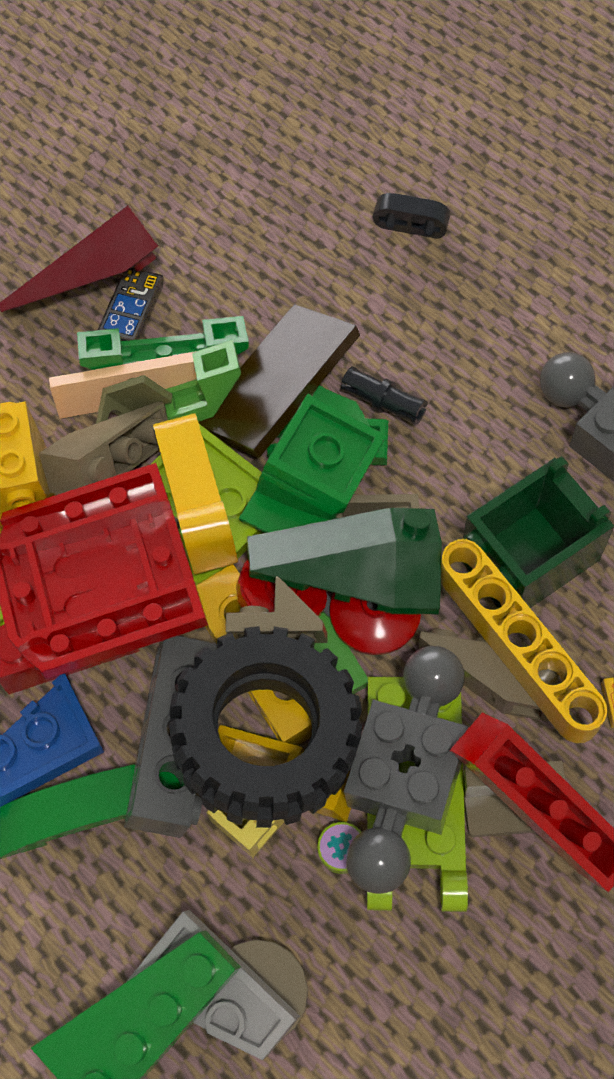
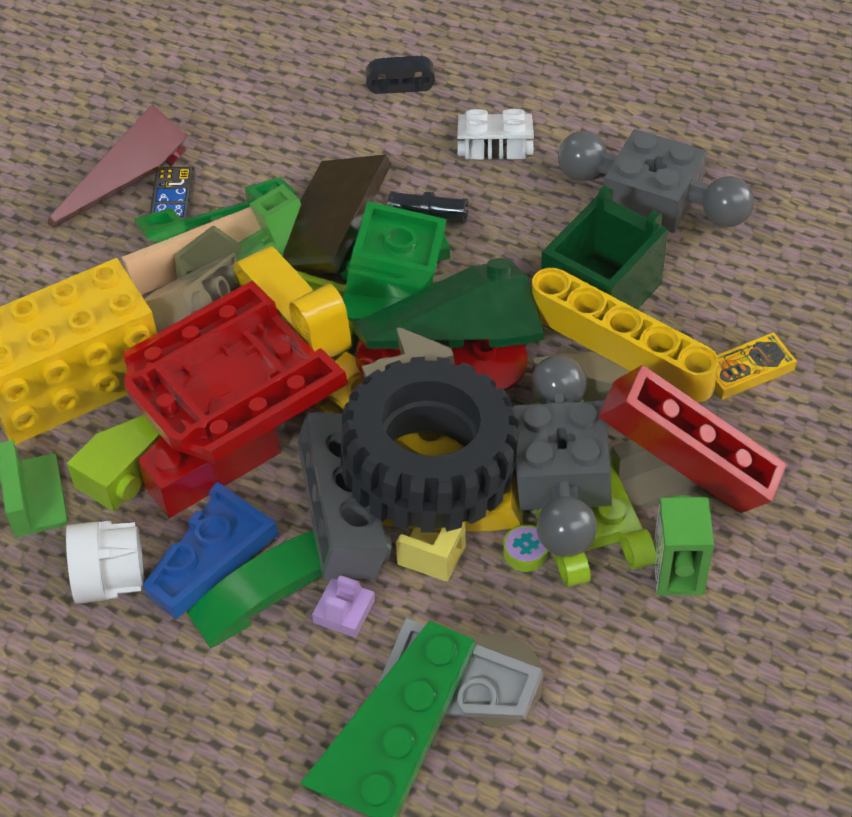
camera: 20 degrees left, 15 degrees down
(139, 858) = (344, 606): none -> lavender tile
(488, 313) = (479, 125): none -> white hinge
(494, 914) = (683, 545): none -> bright green brick

